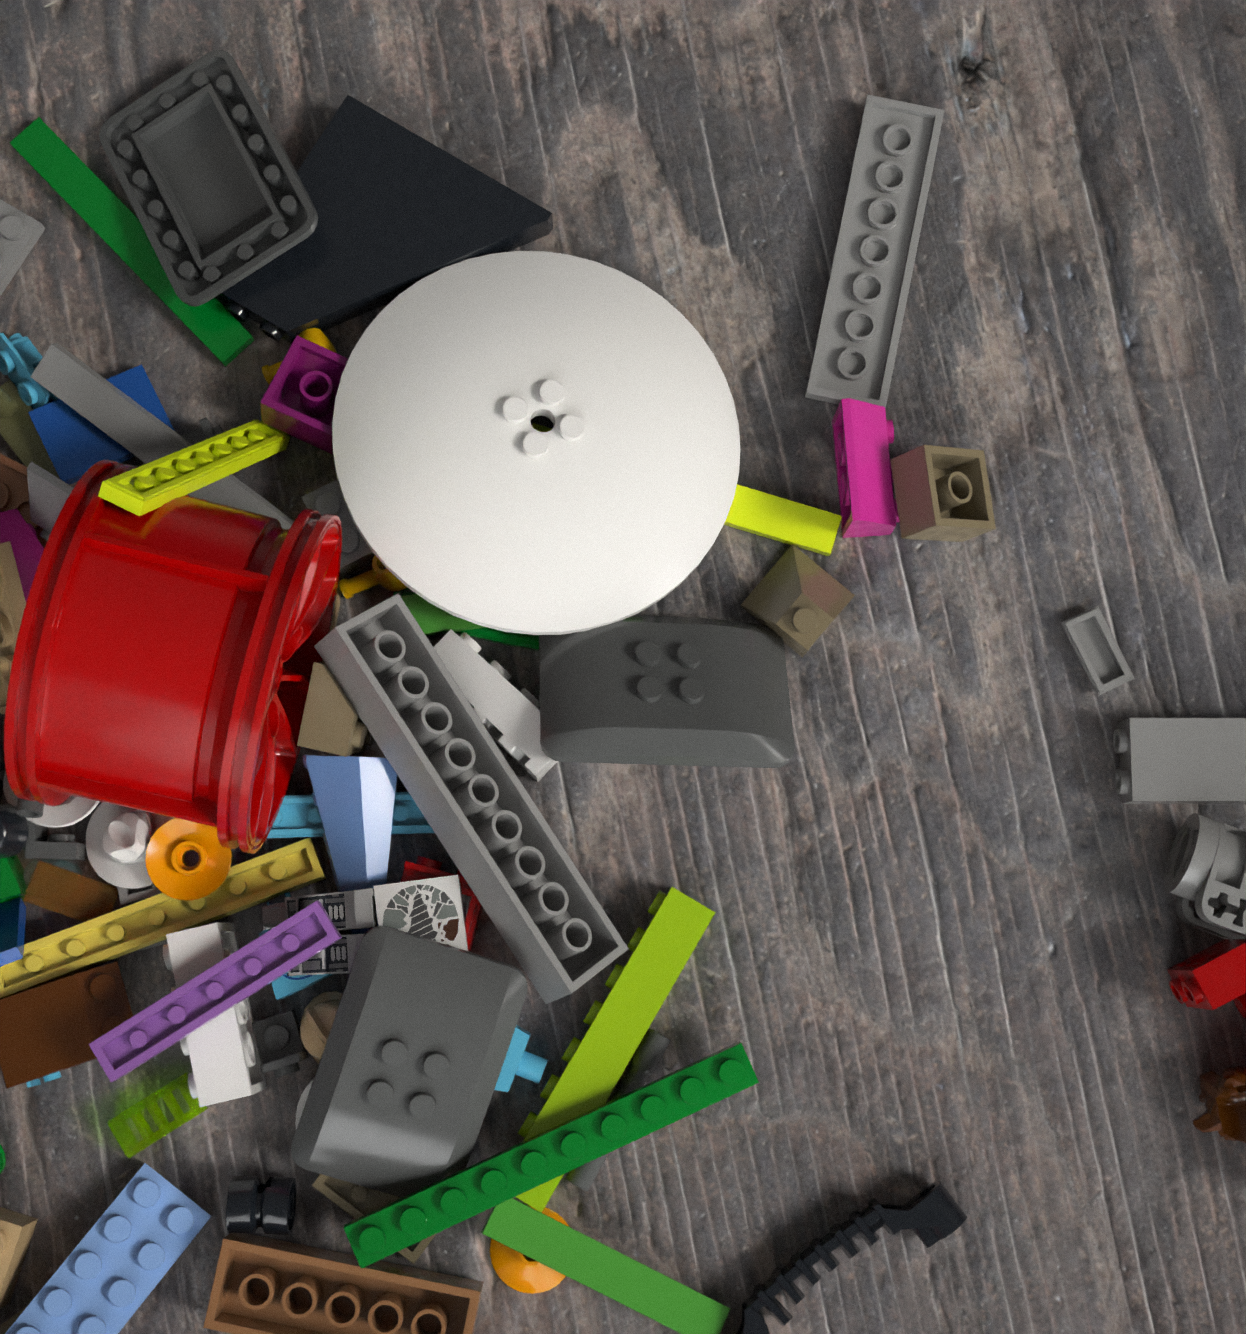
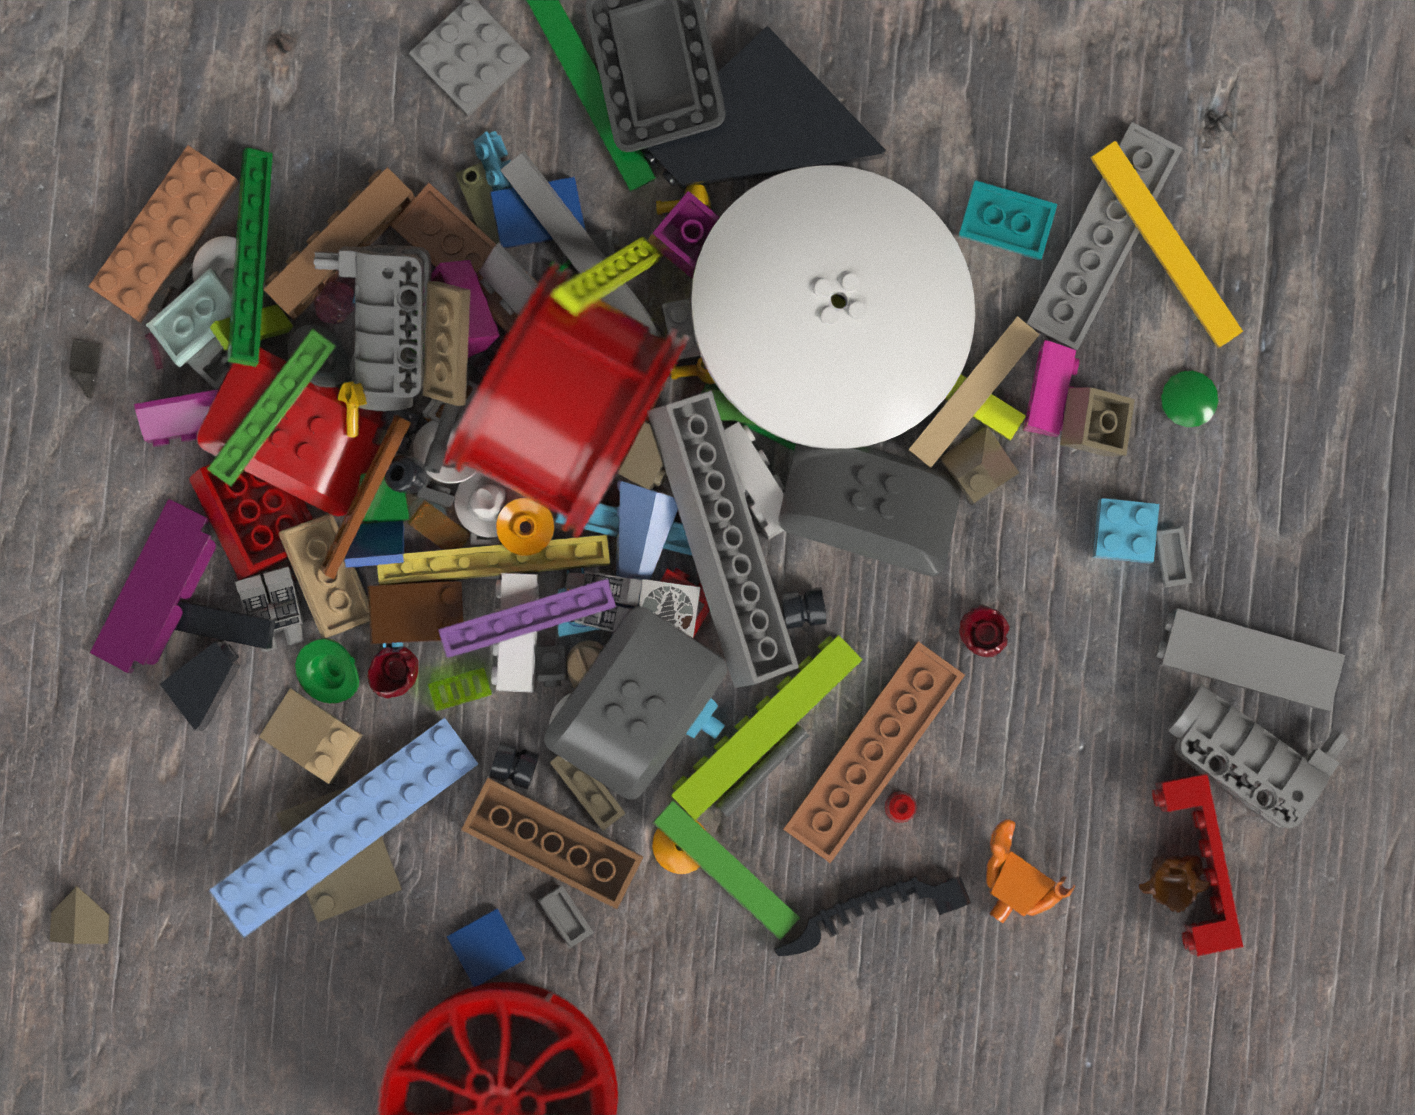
camera: 20 degrees right, 5 degrees up
(53, 1119) = (393, 672): none -> dark red hair
(549, 1154) = (713, 784): green plate -> none
(613, 862) = (804, 608): none -> black wheel
(741, 265) = (1008, 220): none -> teal plate
(762, 503) = (973, 392): none -> tan tile
(776, 1024) = (874, 752): none -> nougat plate
(826, 1104) = (900, 807): none -> red hat
(872, 824) = (984, 631): none -> dark red hair
(962, 238) = (1166, 244): none -> yellow tile
(1024, 632) = (1125, 530): none -> medium azure brick
(1026, 1169) = (1016, 881): none -> orange torso
(1053, 434) = (1189, 398): none -> green dish

